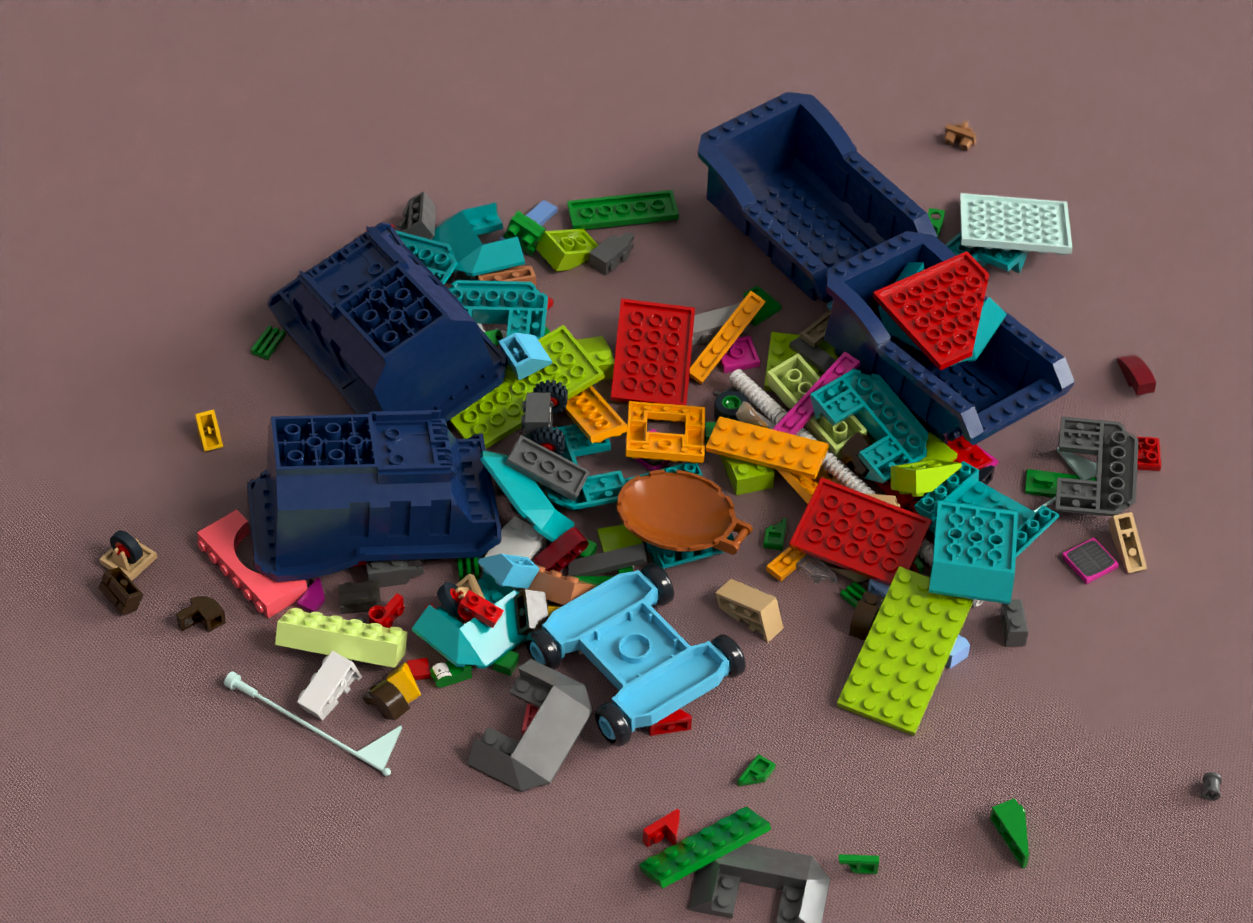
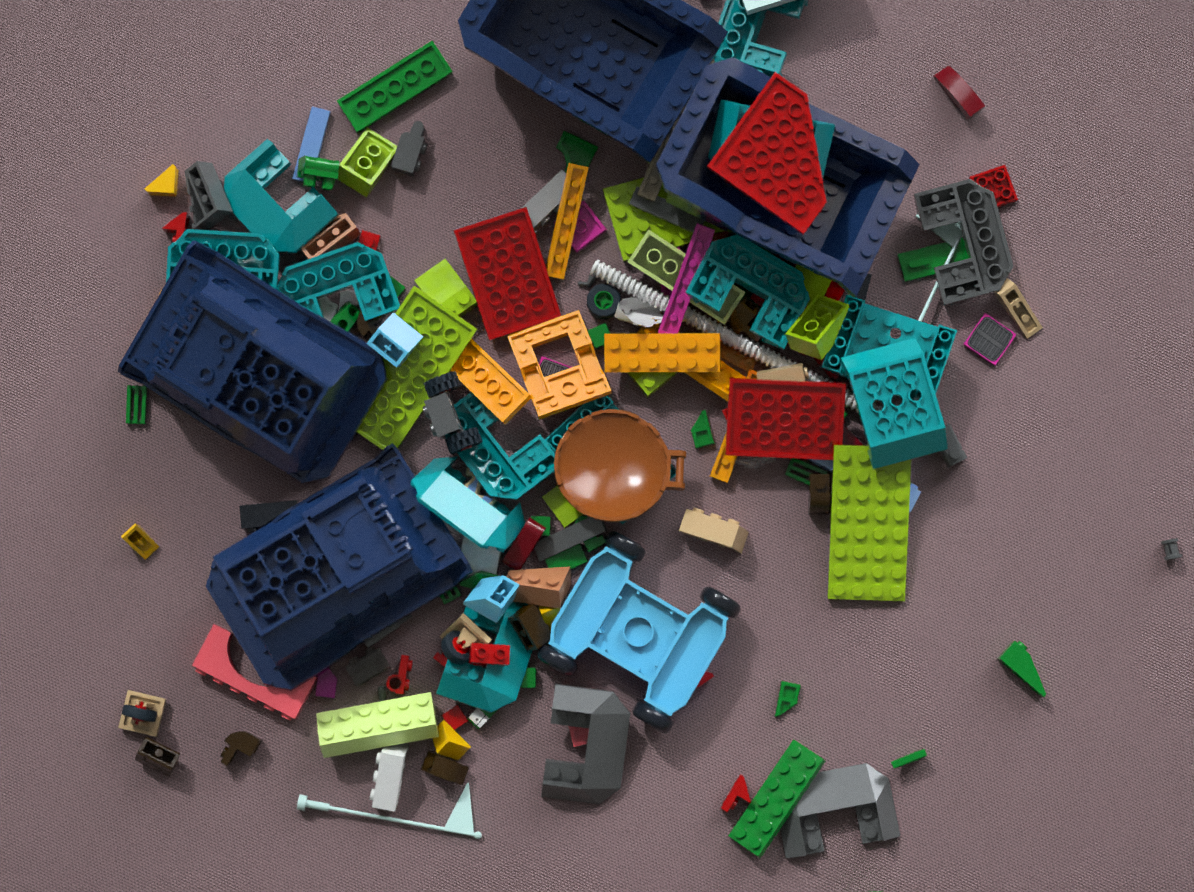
camera: 20 degrees left, 35 degrees up
(386, 206) = (165, 184): none -> yellow slope
(547, 468) = (477, 471): dark grey tile -> none

